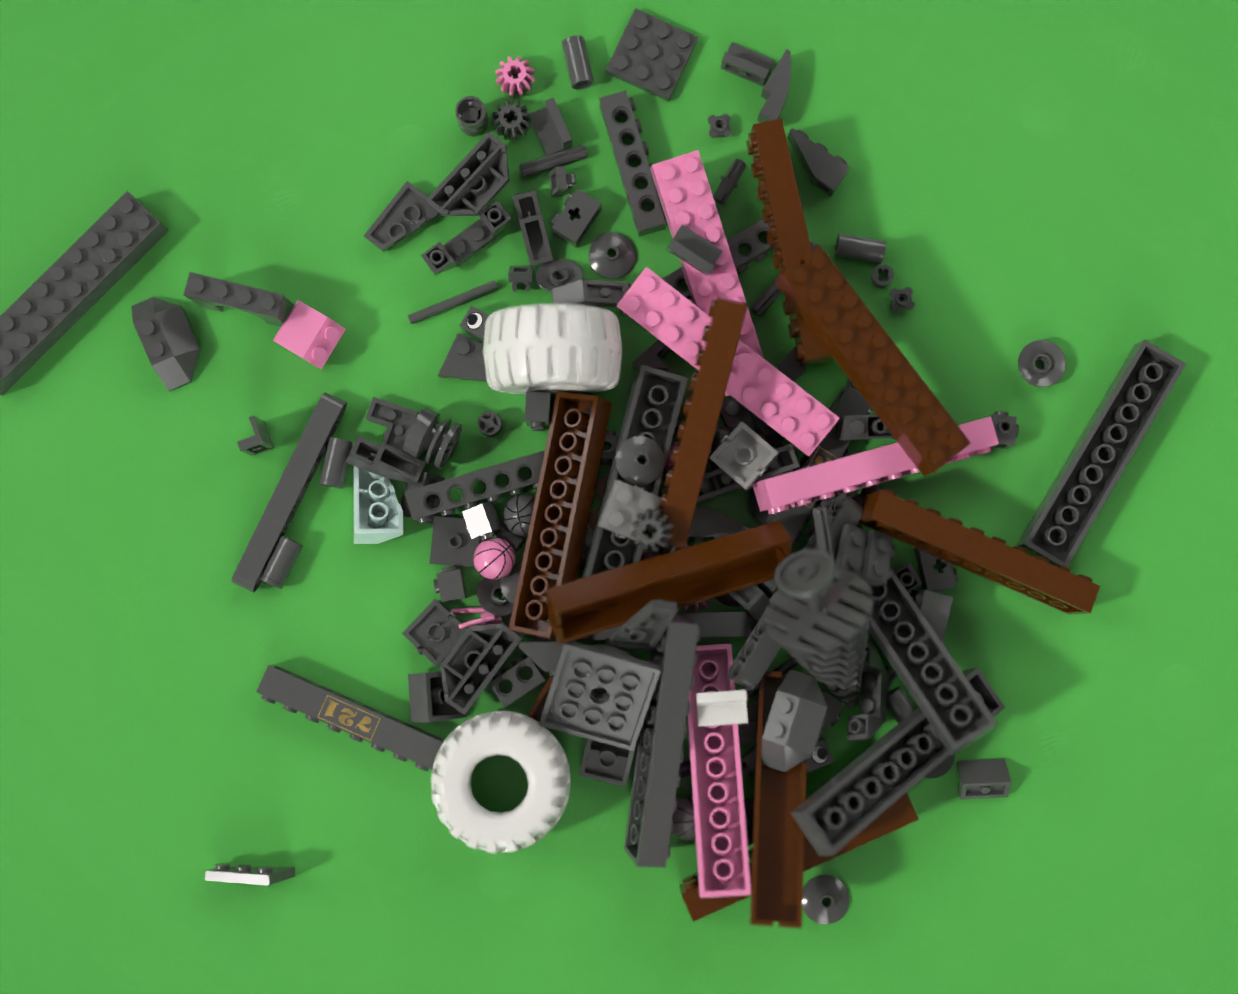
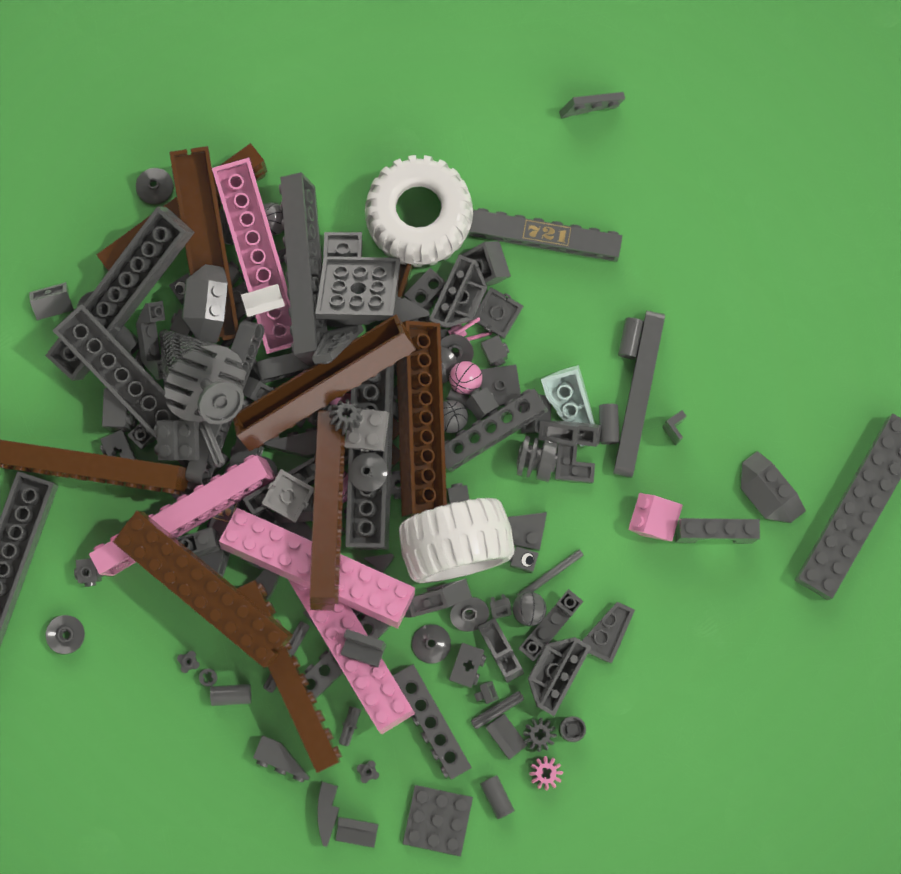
camera: 165 degrees right, 5 degrees down
(486, 421) = (495, 479): dark grey wheel -> none
(487, 263) = (529, 608): none -> dark grey piece

